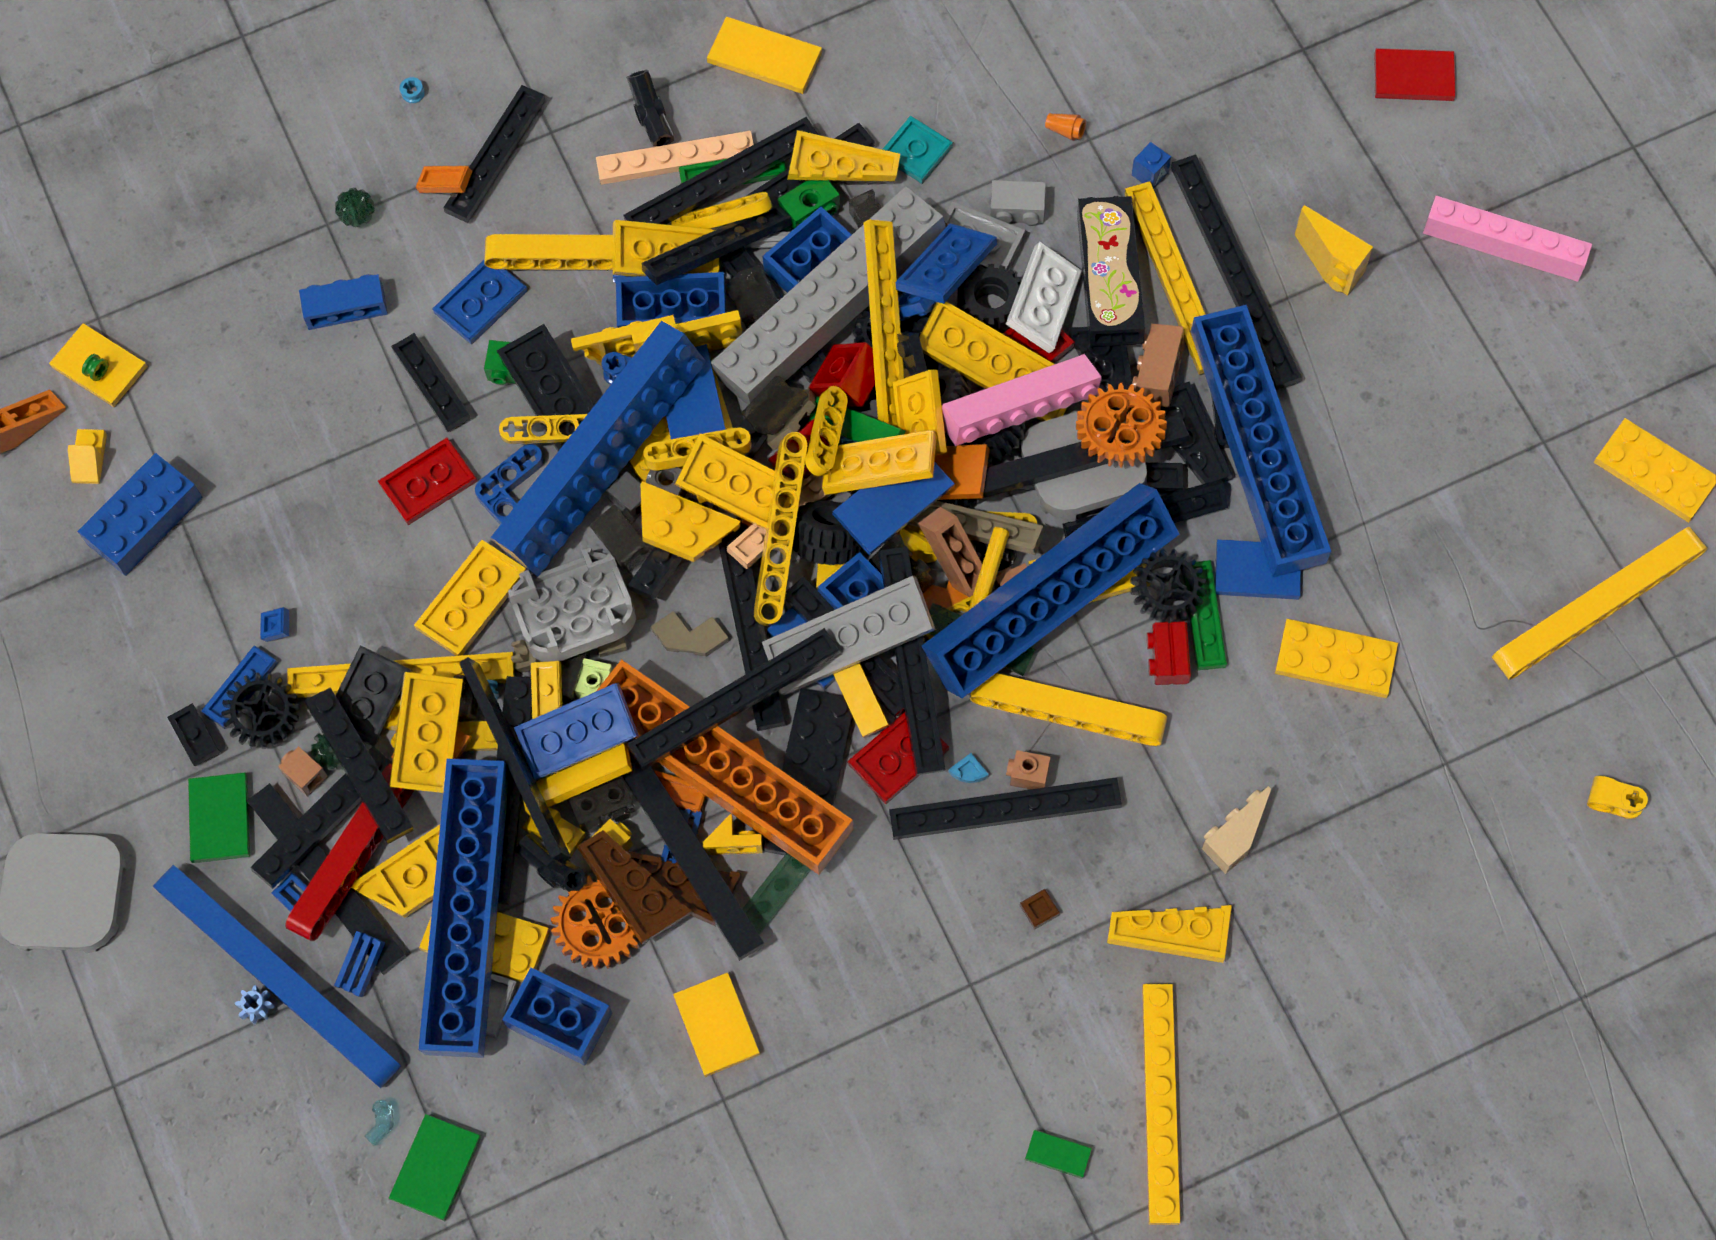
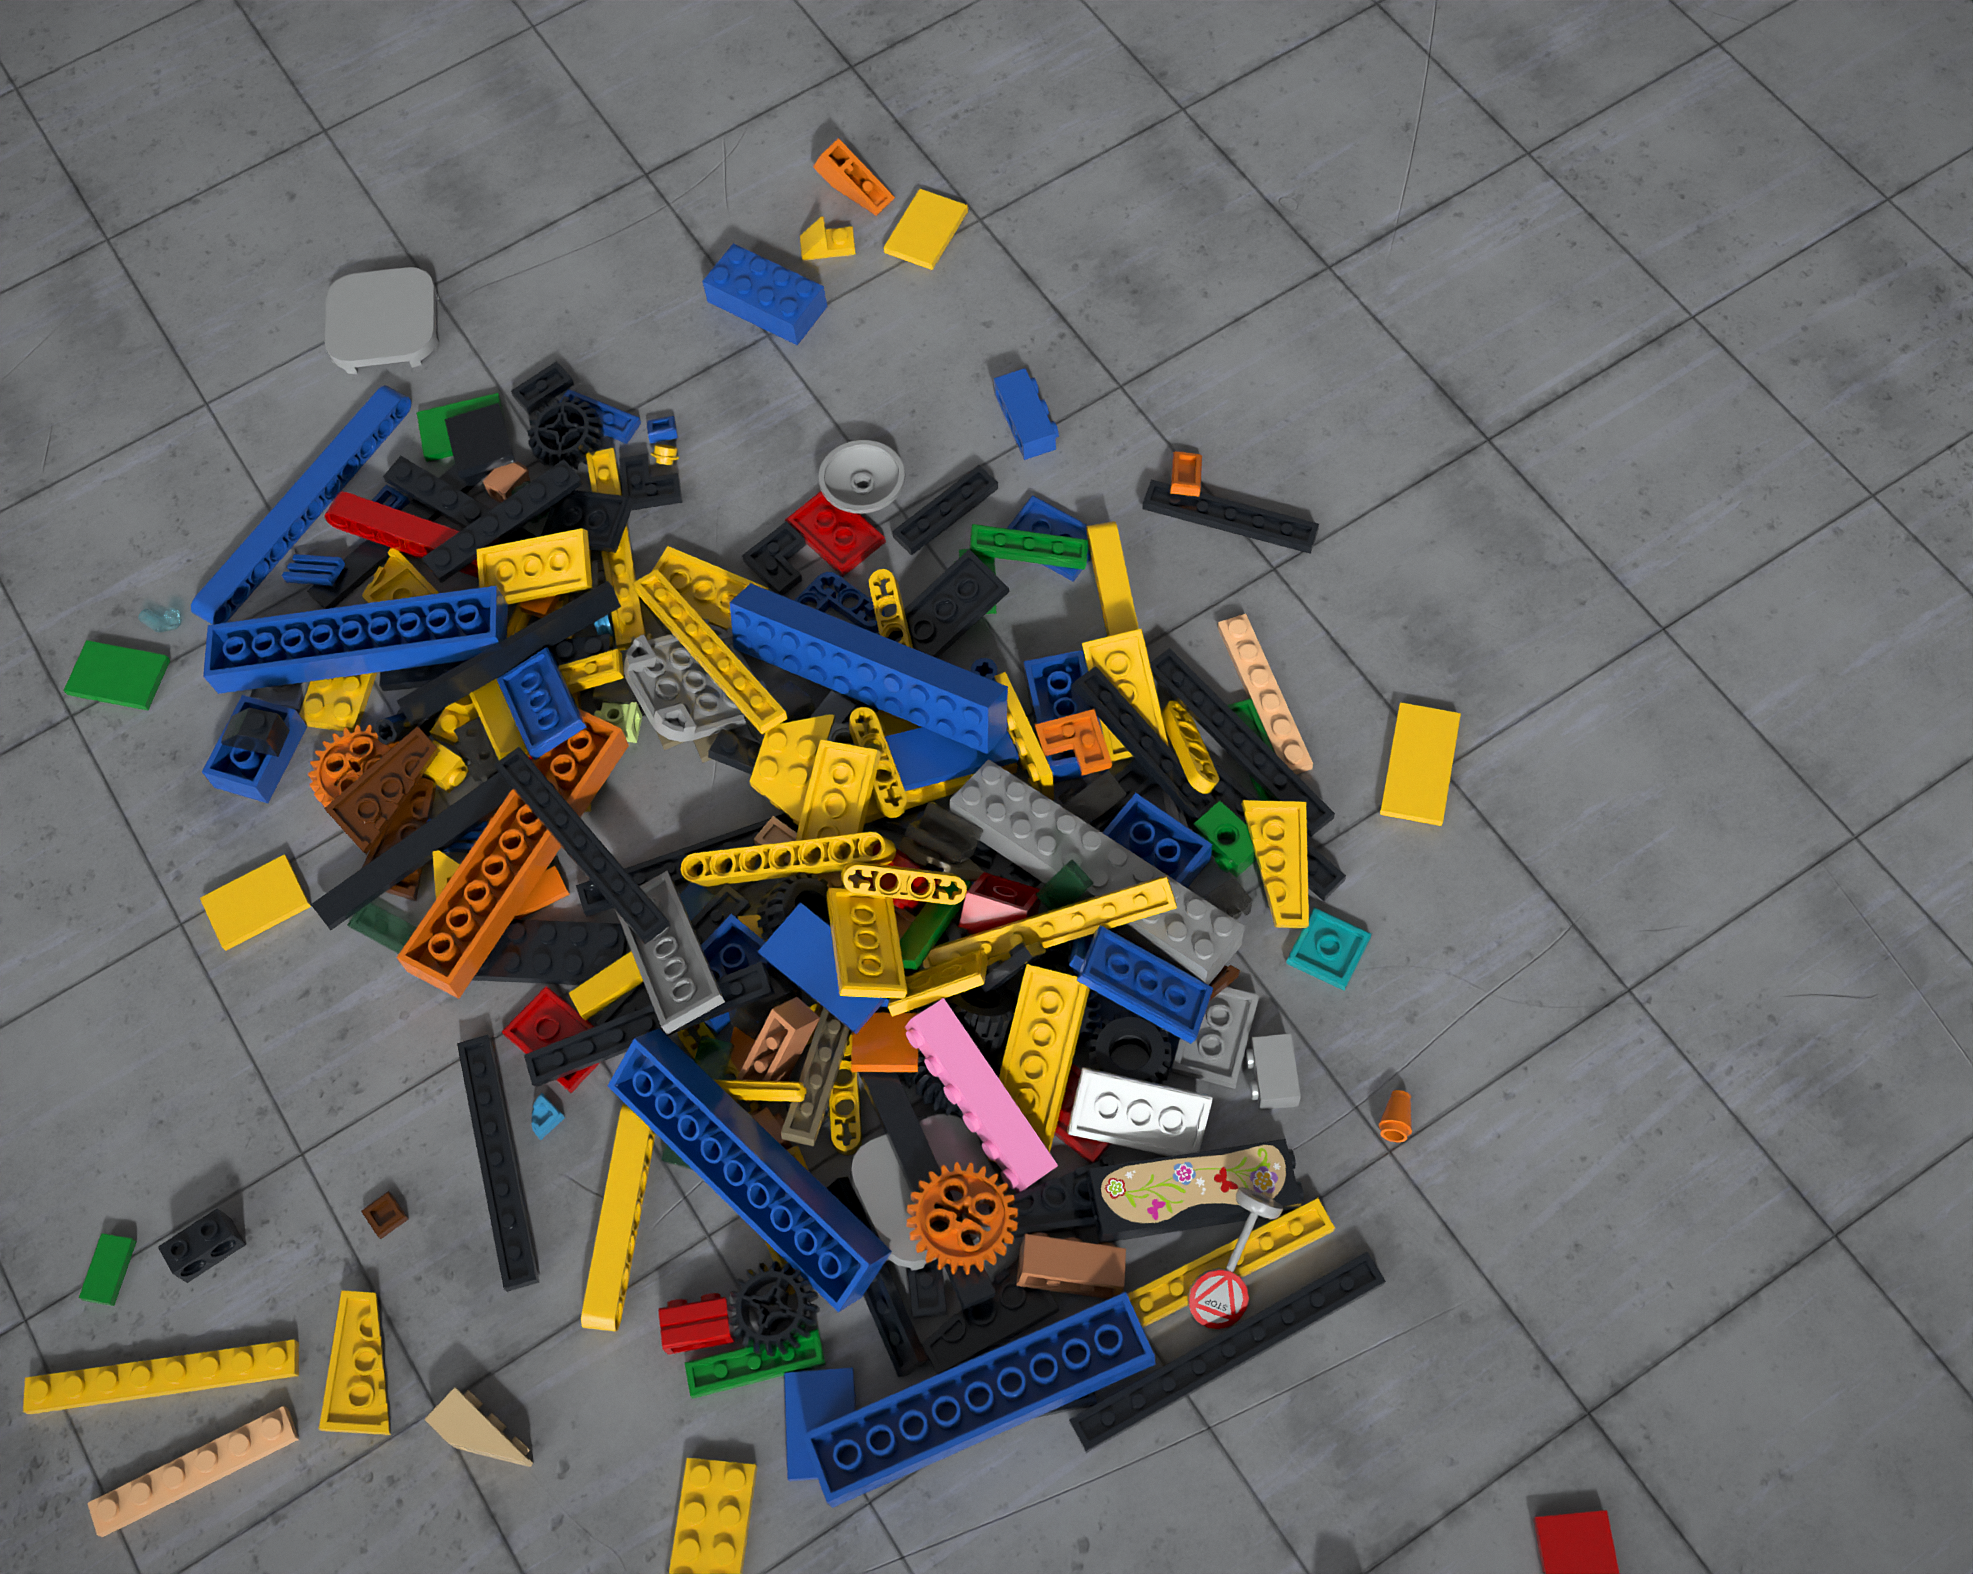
camera: 85 degrees right, 5 degrees down
(95, 367) = (914, 221): green bush -> none
(250, 996) = (271, 490): light blue gear -> none
(251, 790) = (479, 441): none -> black tile
(305, 622) = (665, 454): none -> yellow plate
(339, 647) = (648, 490): none -> black plate
(354, 207) = (1136, 400): clear green piece -> none
(378, 431) = (858, 466): none -> light grey dish
(415, 96) = (1294, 435): dark azure bush -> none
(449, 539) = (770, 558): none -> black plate
(494, 312) = (1028, 546): none -> green tile
(549, 583) = (710, 651): none -> yellow plate
(552, 1000) = (256, 732): none -> black slope
(615, 339) = (1005, 660): yellow wing -> none
(649, 108) = (1314, 654): black piece -> none
(700, 641) = (677, 795): dark tan tile -> none
(704, 284) = (1078, 733): none -> orange plate
(848, 314) = (1064, 887): none -> clear green tile
(1028, 770) = (541, 1180): nougat brick -> none
(1051, 1062) = (201, 1245): none -> black brick
(1151, 165) = (1356, 1226): blue brick -> none
(1190, 263) = (1219, 1295): none -> light grey piece
(1245, 1073) = (192, 1471): none -> light nougat plate
(1333, 250) = (1261, 1478): yellow slope -> none

